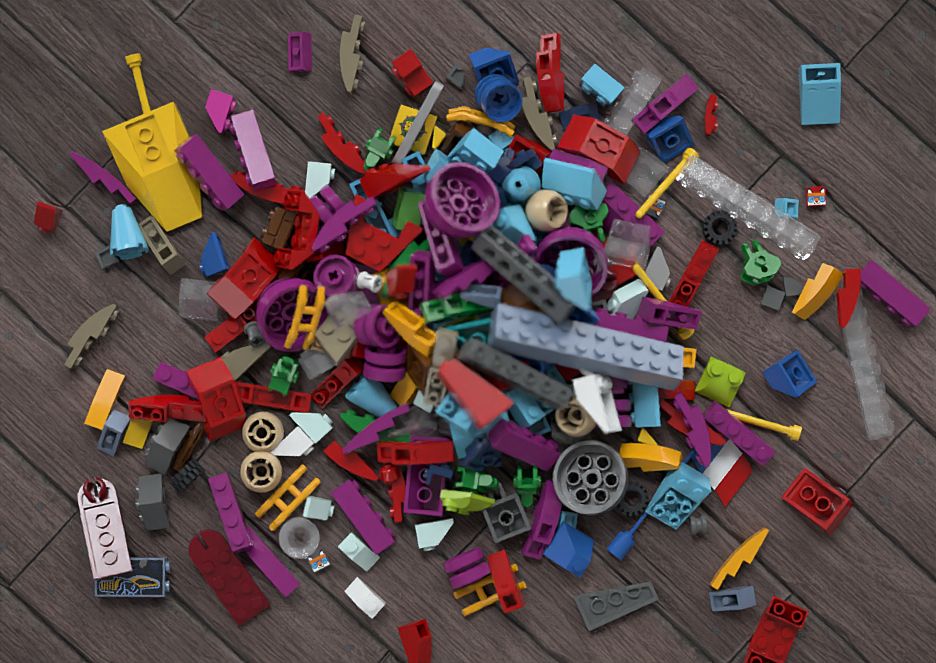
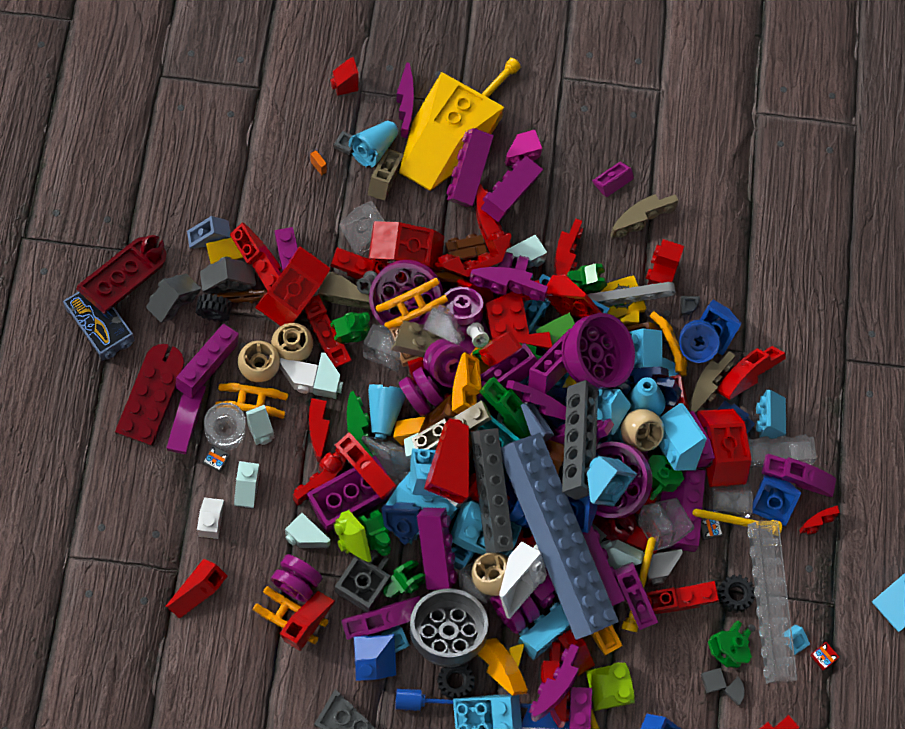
camera: 50 degrees right, 20 degrees down
(94, 327) = (283, 165): dark tan slope -> none
(104, 399) = (232, 209): light orange slope -> none
(110, 295) = (318, 162): none -> orange tile
(214, 257) = (410, 211): blue slope -> none
(337, 381) = (376, 373): red slope -> none
(363, 516) = (279, 468): magenta brick -> none
(371, 432) = (354, 421): magenta slope -> none
(442, 469) = (366, 497): dark blue bracket -> none
(817, 291) = (749, 711): light orange slope -> none

